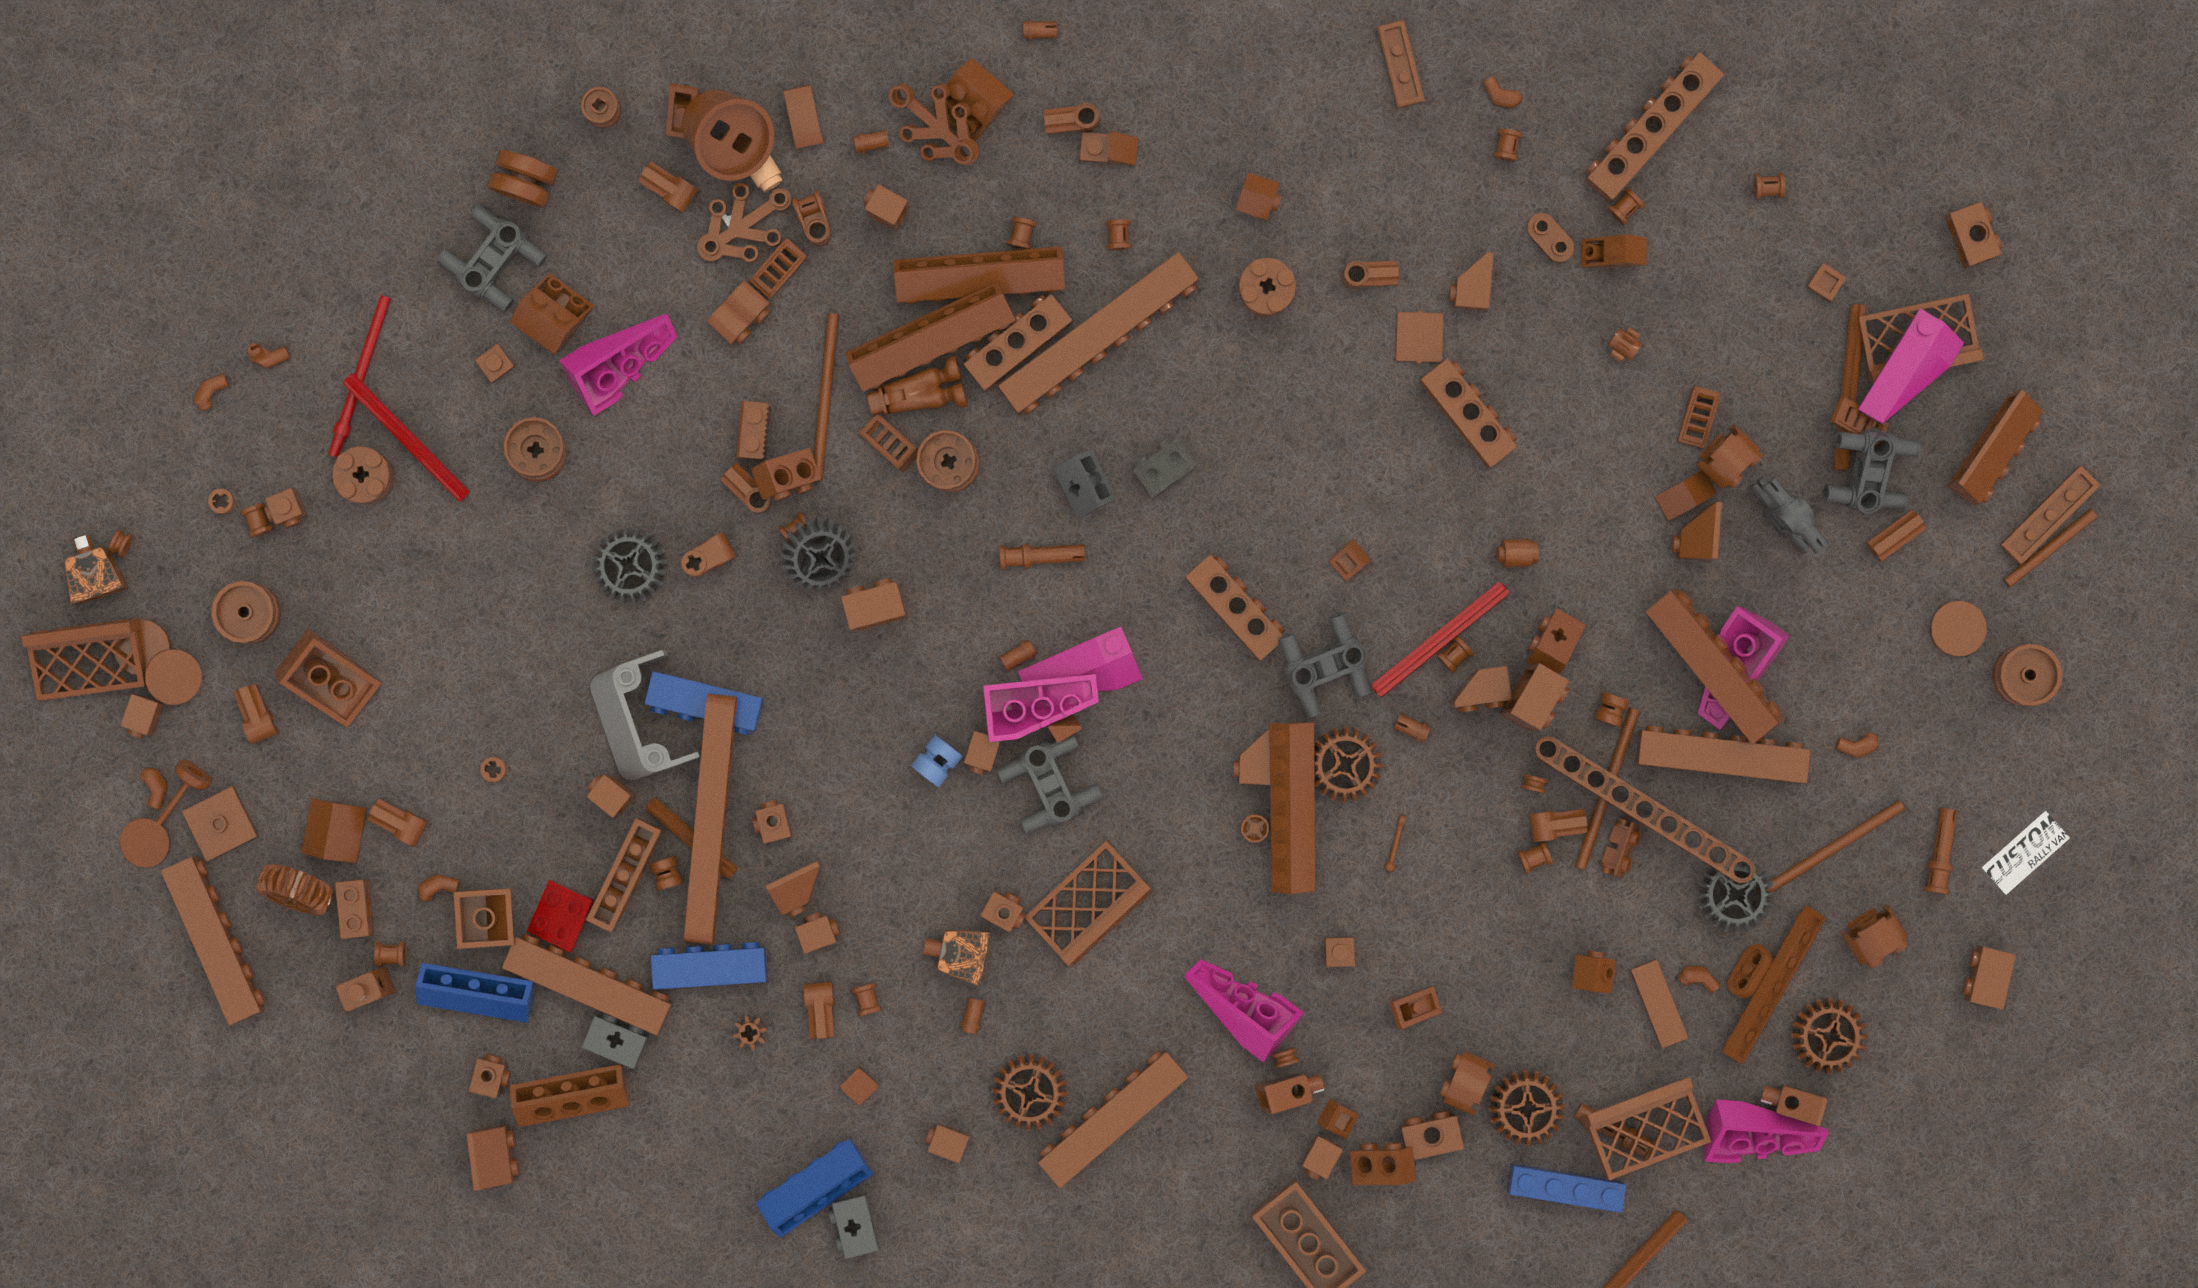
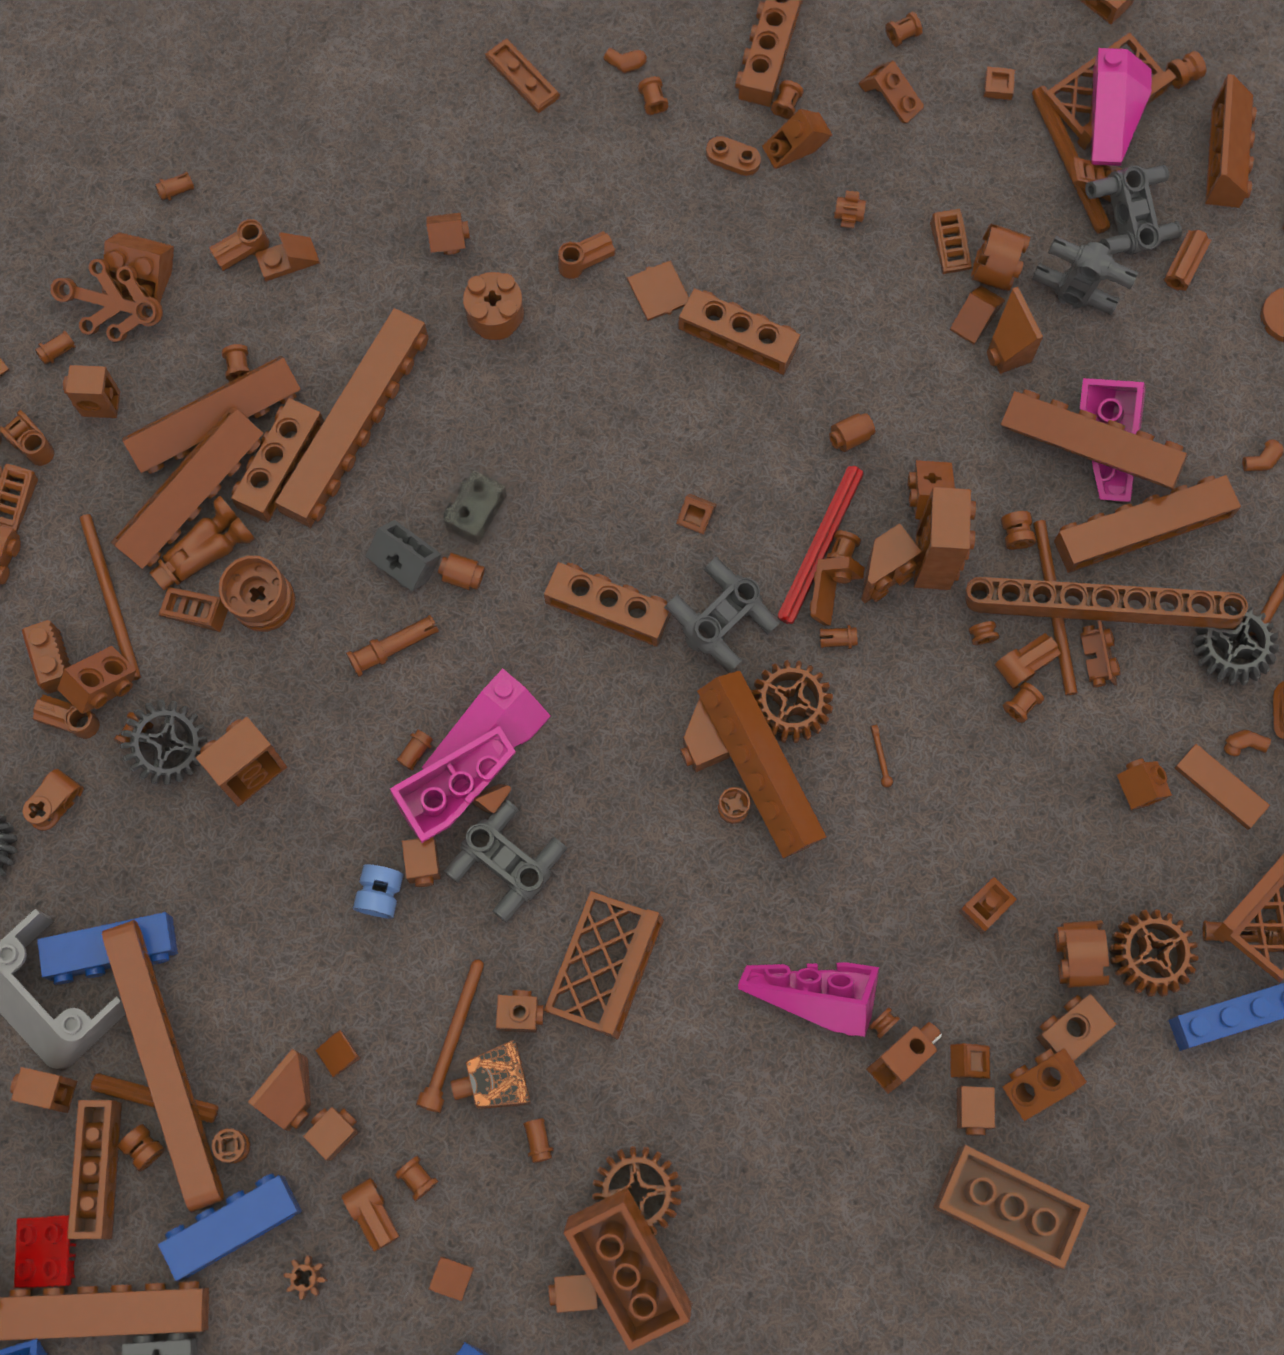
camera: 25 degrees left, 15 degrees down
(740, 903) = (236, 1146): none -> dark orange wheel
(772, 822) = (233, 1038): dark orange brick -> none
(847, 873) = (337, 1053): none -> dark orange slope
(906, 942) = (432, 1096): none -> dark orange piece
(995, 1146) = (628, 1269): none -> dark orange brick
(1112, 1119) = (738, 1177): dark orange brick -> none
(1118, 234) = (331, 324): dark orange bush -> none
(1127, 519) = (461, 571): none -> dark orange brick
(1339, 951) = (882, 886): dark orange brick -> none
(1427, 673) = (825, 578): none -> dark orange bracket
(1474, 286) = (686, 222): dark orange slope -> none
(1726, 243) = (895, 89): none -> dark orange bracket
(2001, 351) = (1189, 68): none -> dark orange wheel

